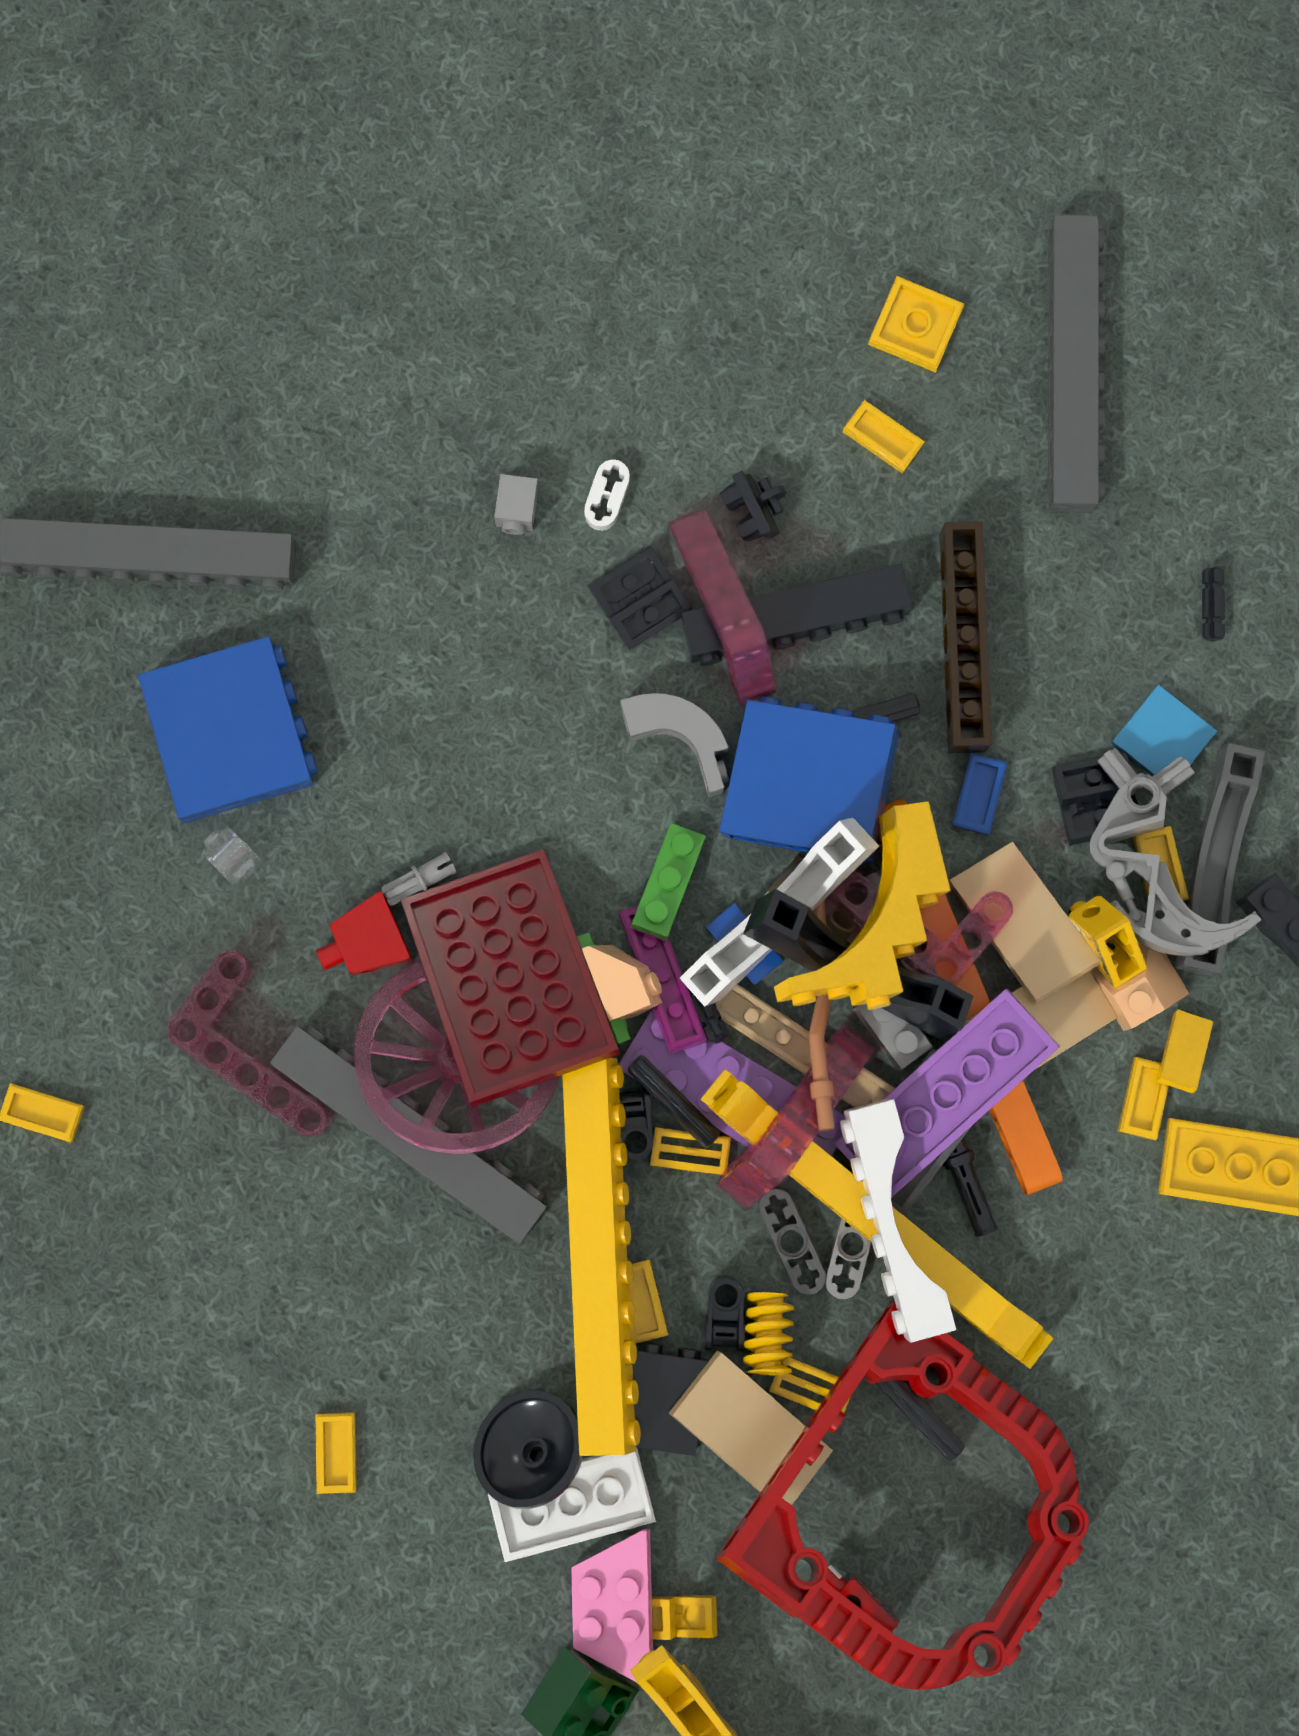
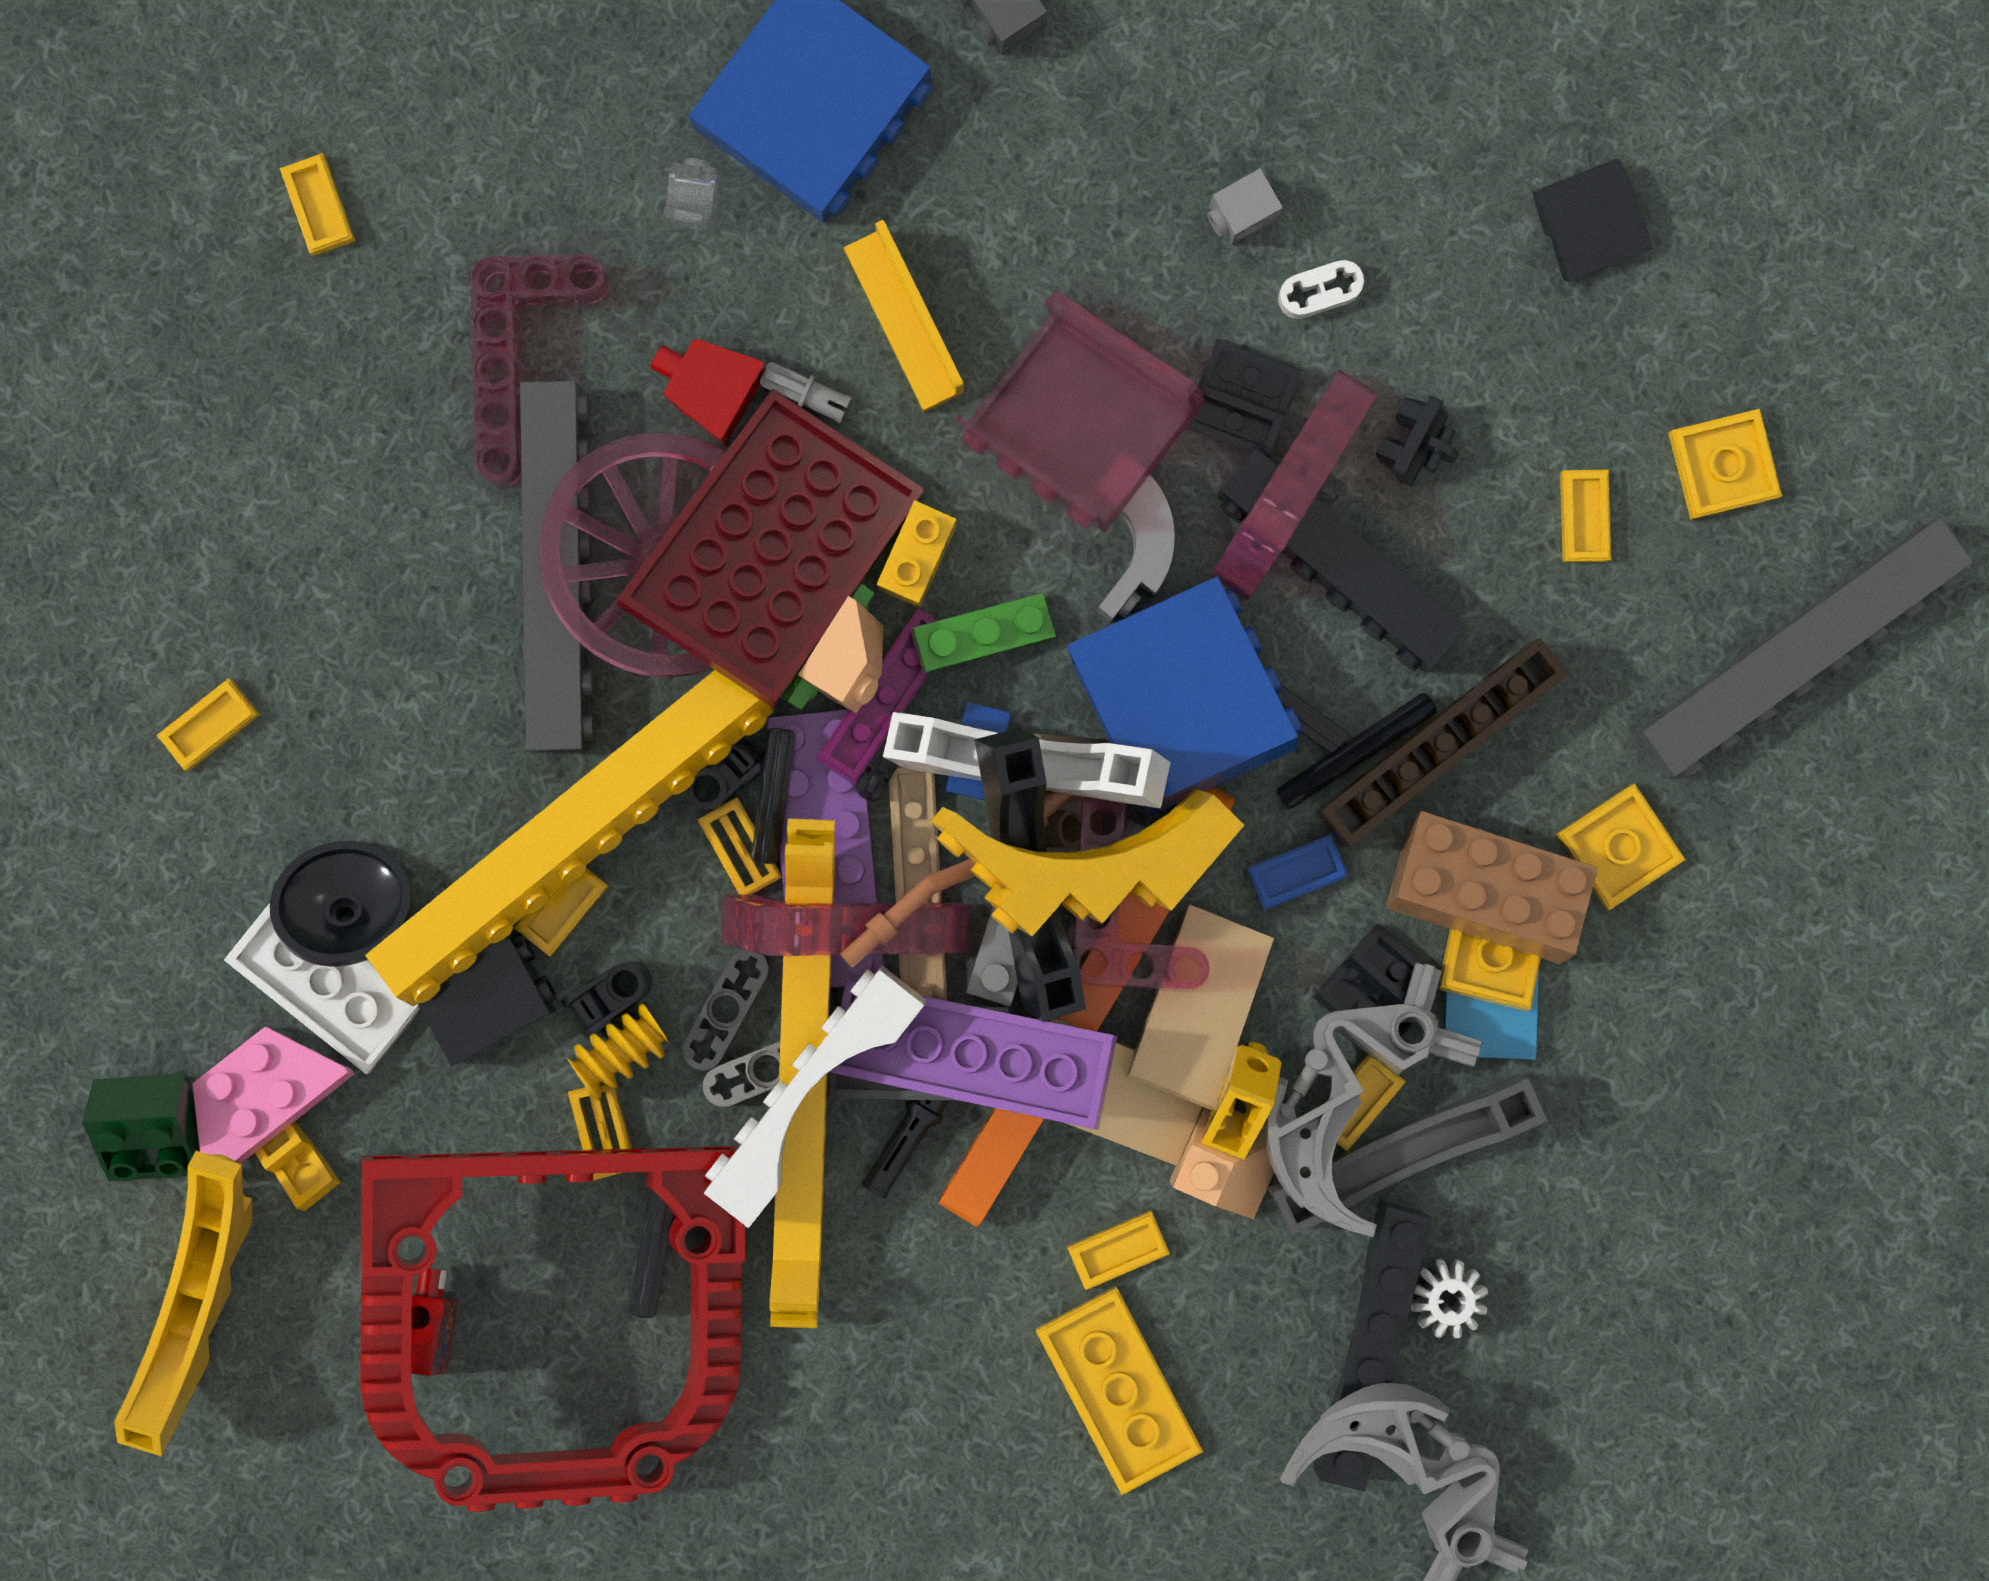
camera: 55 degrees right, 5 degrees up
(419, 777) = (904, 318): none -> yellow panel
(574, 708) = (1083, 414): none -> clear pink panel
(583, 885) = (917, 554): none -> yellow brick
(694, 290) = (1592, 220): none -> black slope
(743, 1424) = (514, 1091): tan tile -> none
(928, 696) = (1356, 751): none -> black axle
(1084, 675) = (1491, 887): none -> medium nougat brick
(1116, 573) = (1624, 843): none -> yellow tile
(1128, 708) = (1488, 971): none -> yellow tile
(1185, 1051) = (1192, 1255): yellow tile -> none
(1213, 604) = (1661, 963): black axle -> none

